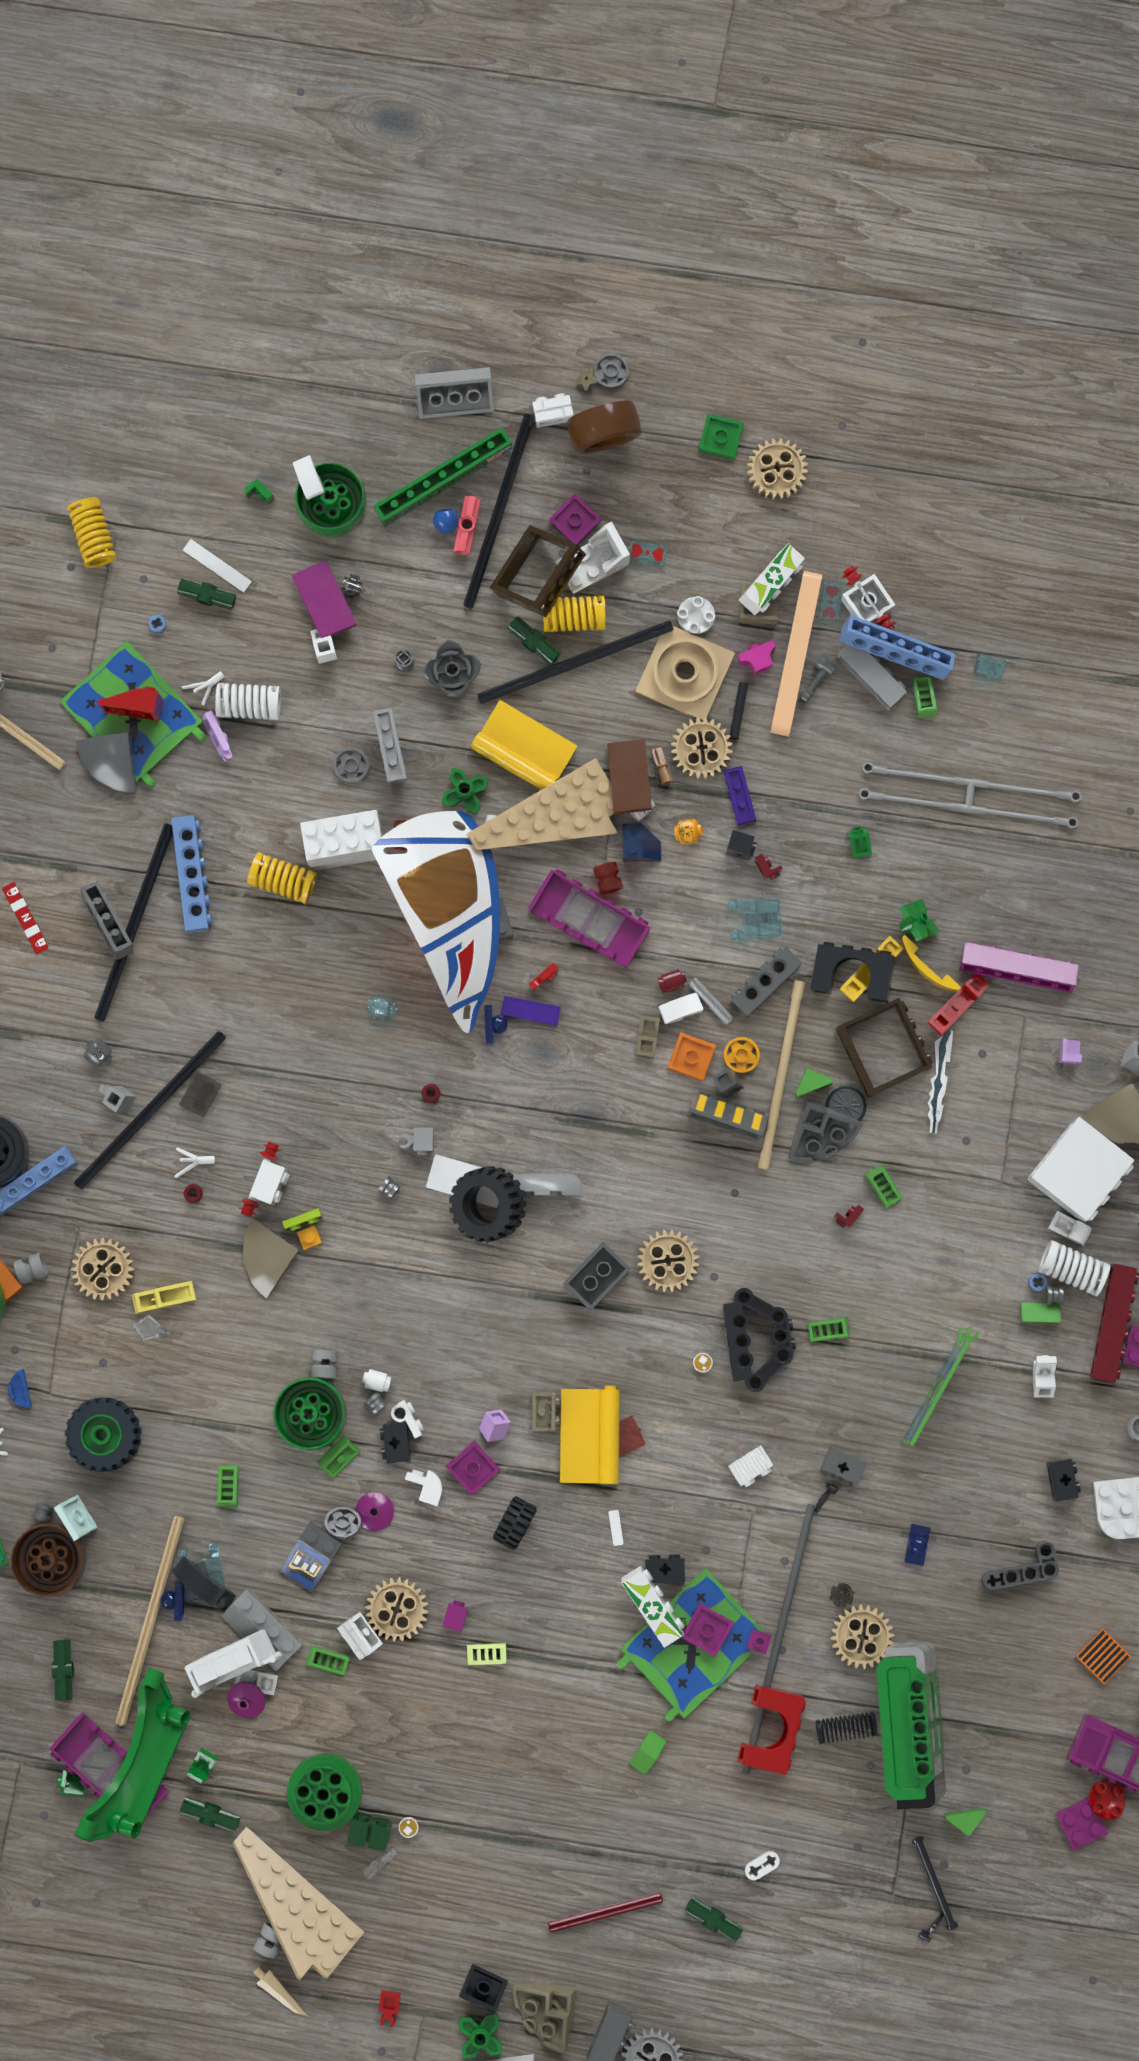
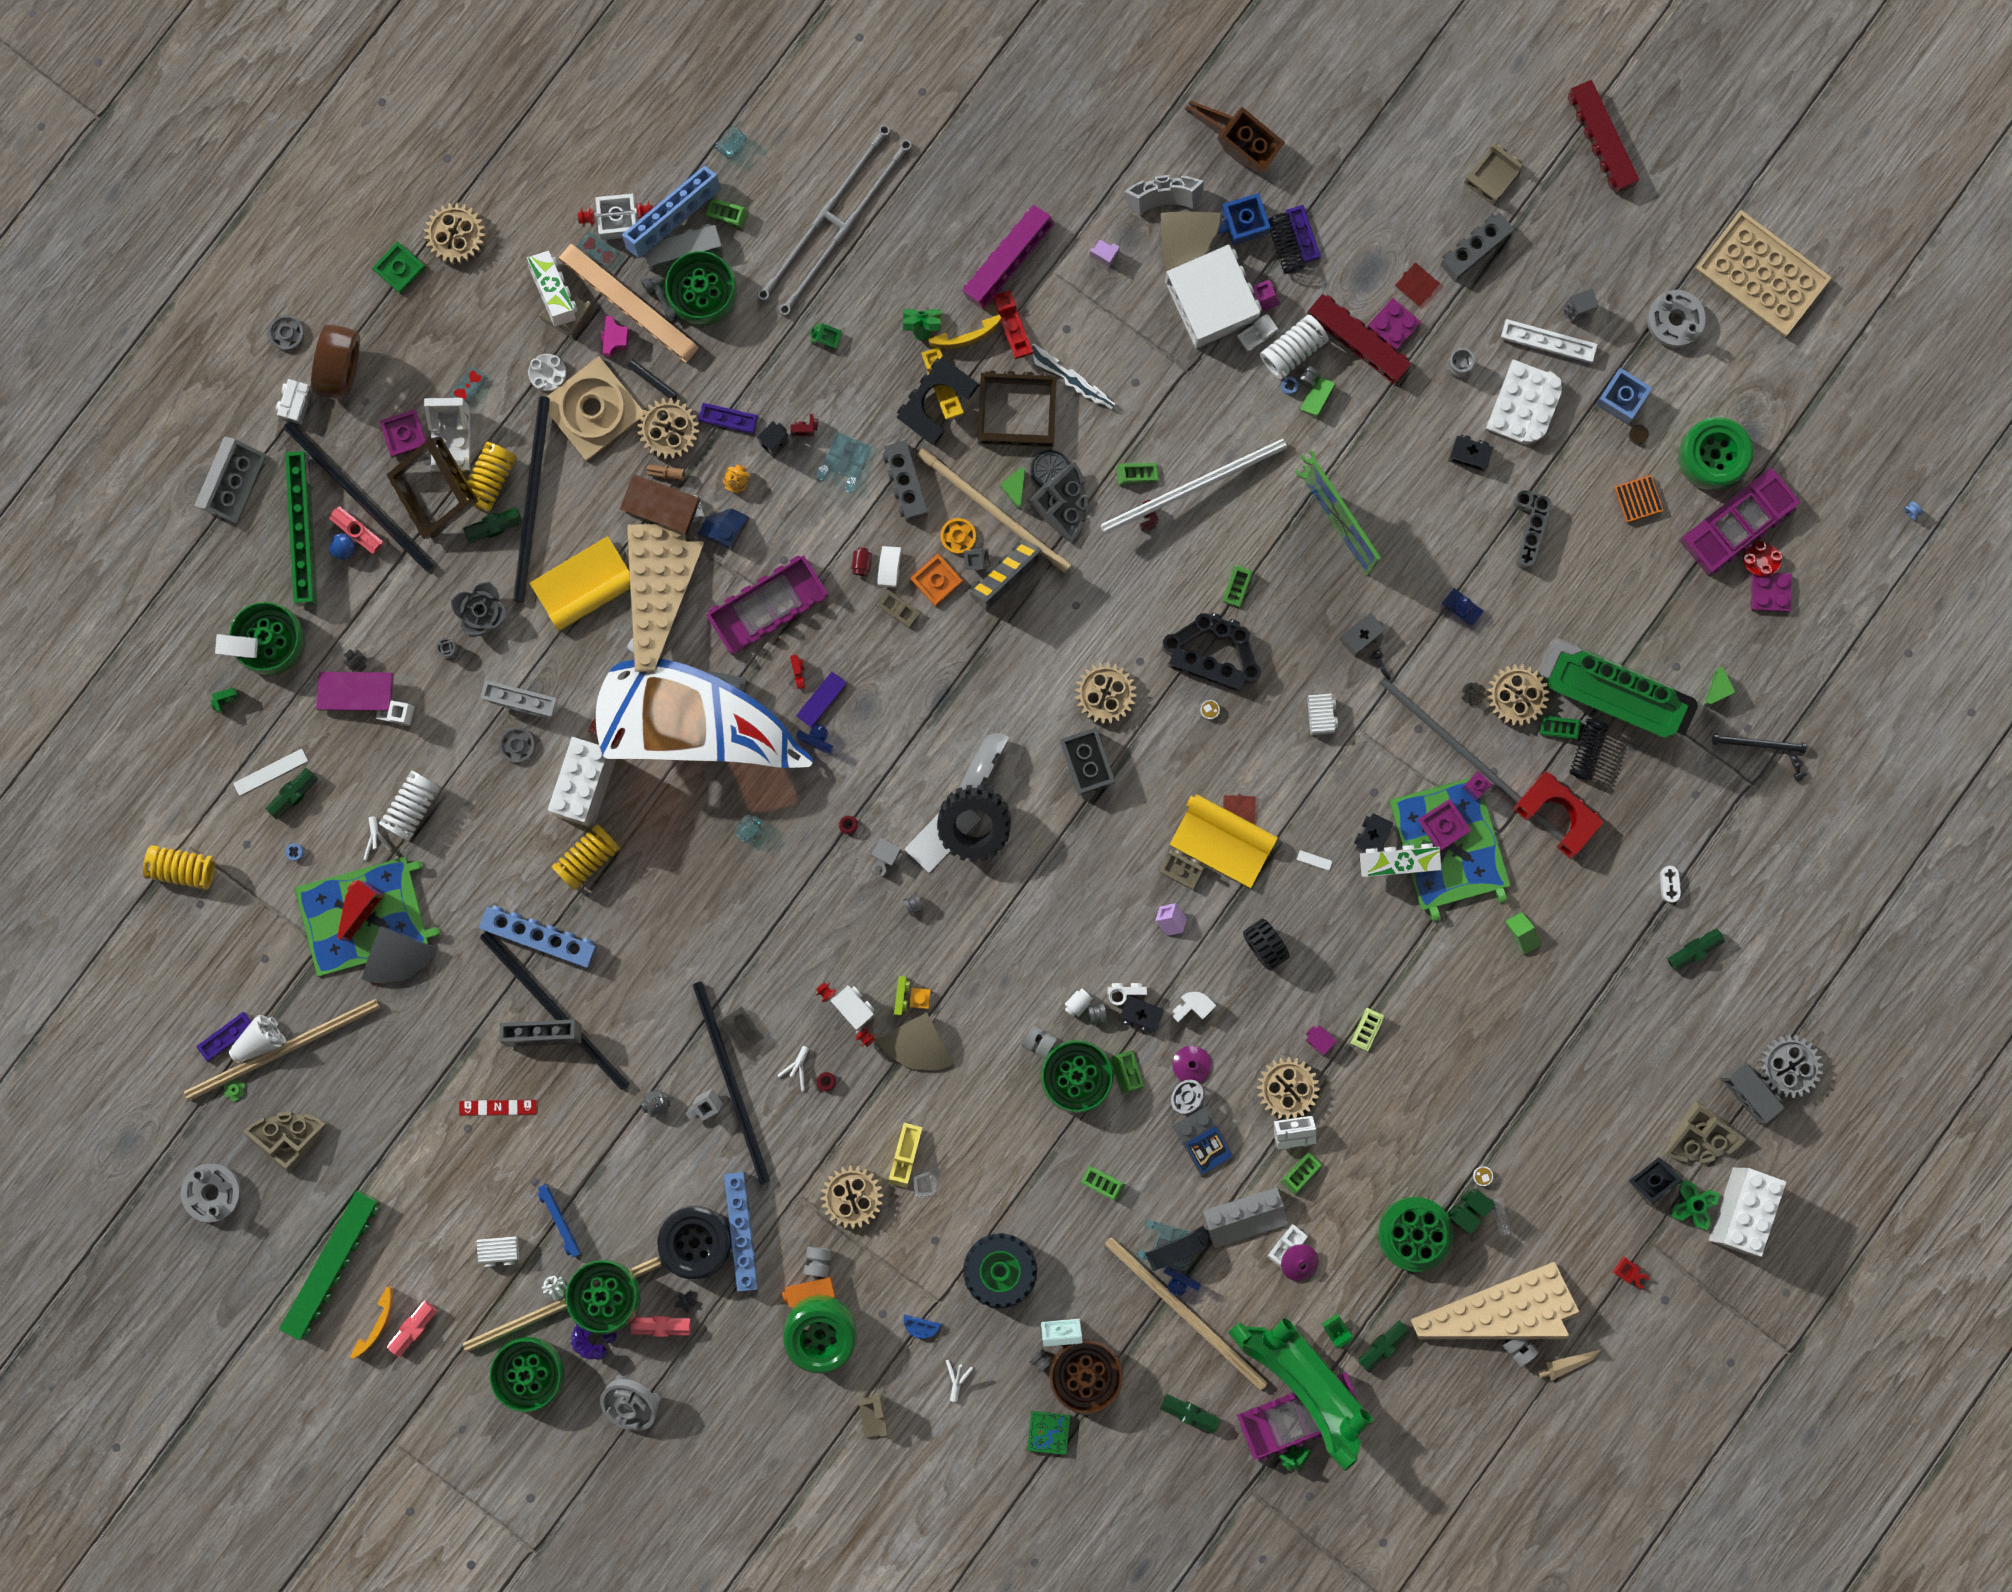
camera: 65 degrees left, 0 degrees up
(218, 737) = (425, 850): lavender hinge -> none
(231, 1661) = (1260, 1256): white container -> none
(460, 782) = (584, 656): green plant -> none
(472, 1467) = (1198, 958): magenta plate -> none
(591, 378) = (281, 352): dark tan plate -> none
(605, 1912) = (1642, 1041): dark red axle -> none
(608, 878) = (740, 570): clear red wheel -> none
(710, 1001) = (896, 538): light grey axle -> none
(853, 688) = (717, 306): none -> green wheel
(853, 1709) = (1543, 730): none -> green slope
(897, 1243) = (1193, 486): none -> white axle
(1044, 1376) = (1374, 422): white brick -> none
(1108, 1218) = (1266, 295): none -> magenta brick

